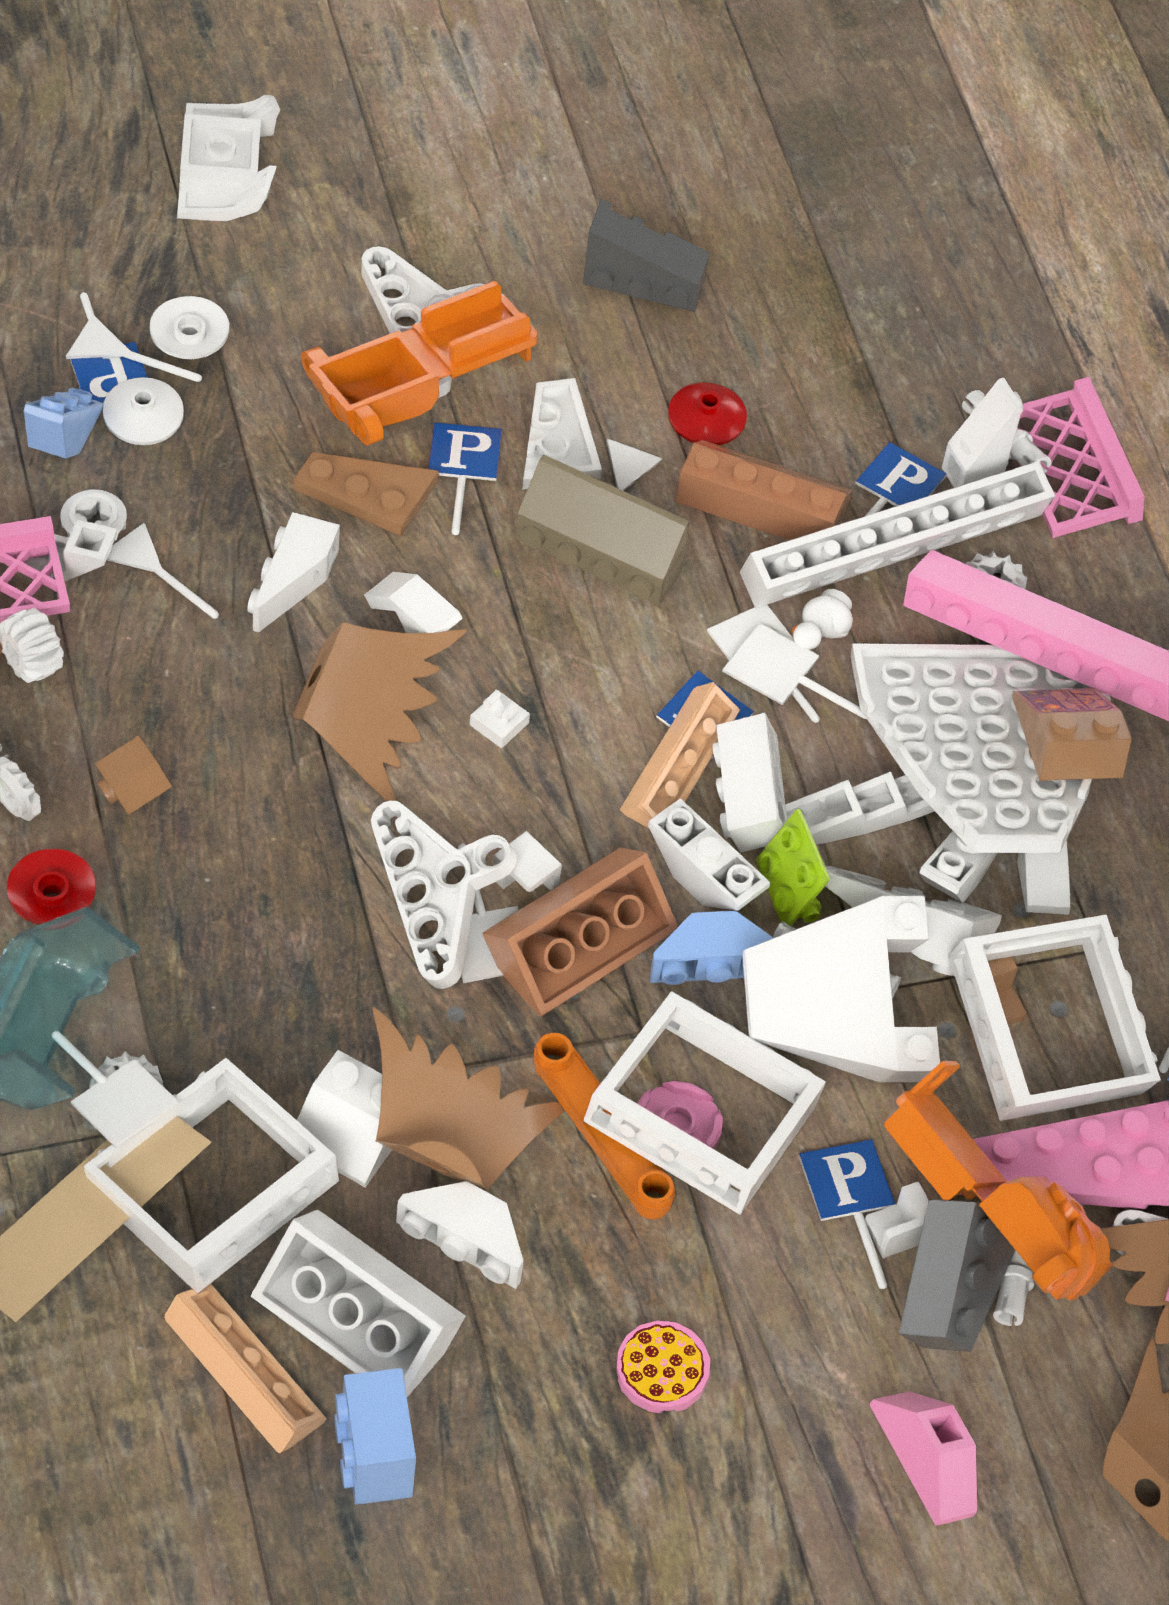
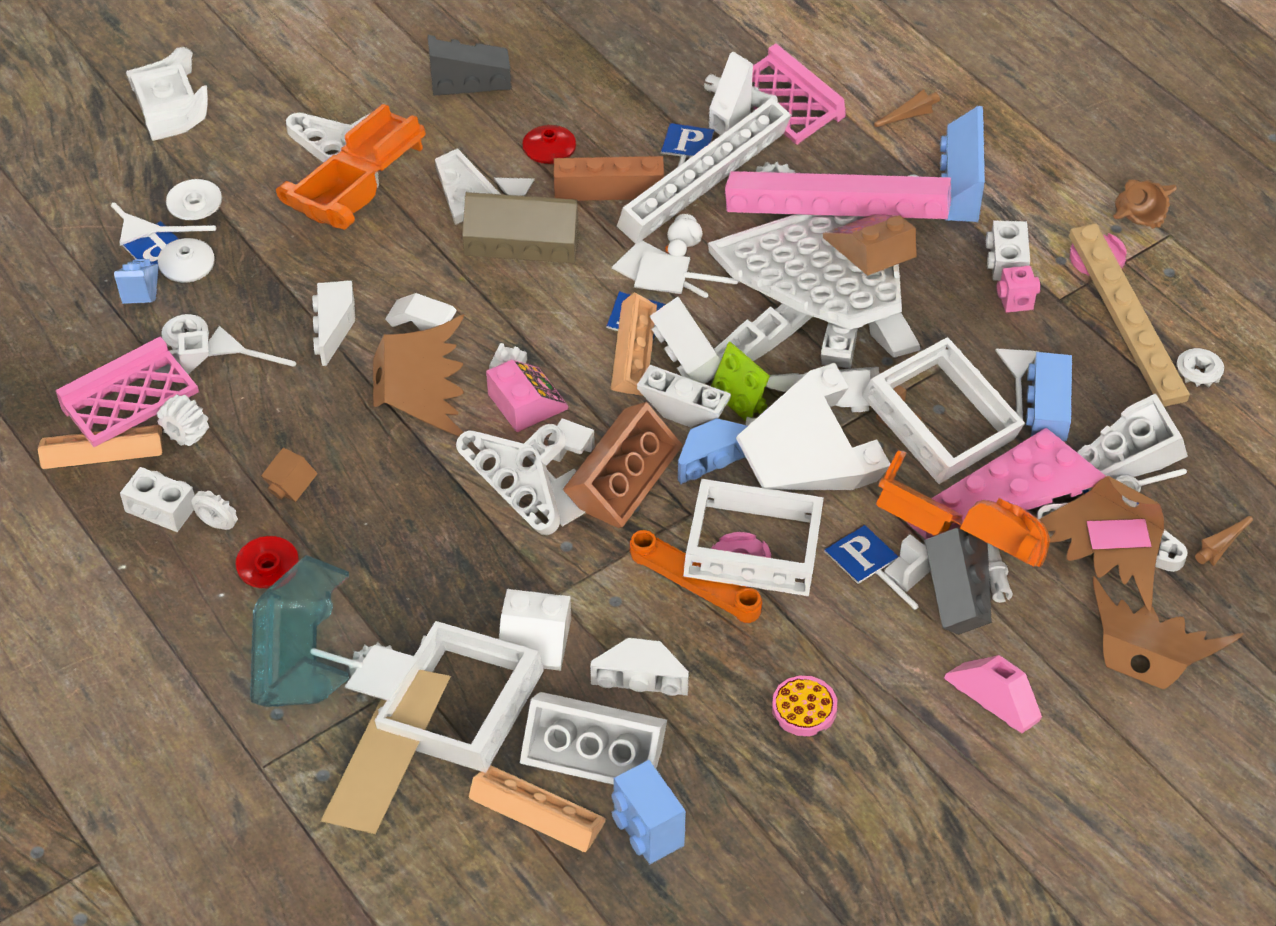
camera: 15 degrees left, 5 degrees down
(367, 489) = (356, 257): medium nougat wing -> none
(448, 1119) = (594, 604): medium nougat piece -> none
(464, 454) = (406, 217): blue piece -> none
(499, 773) = (523, 394): none -> bright pink slope

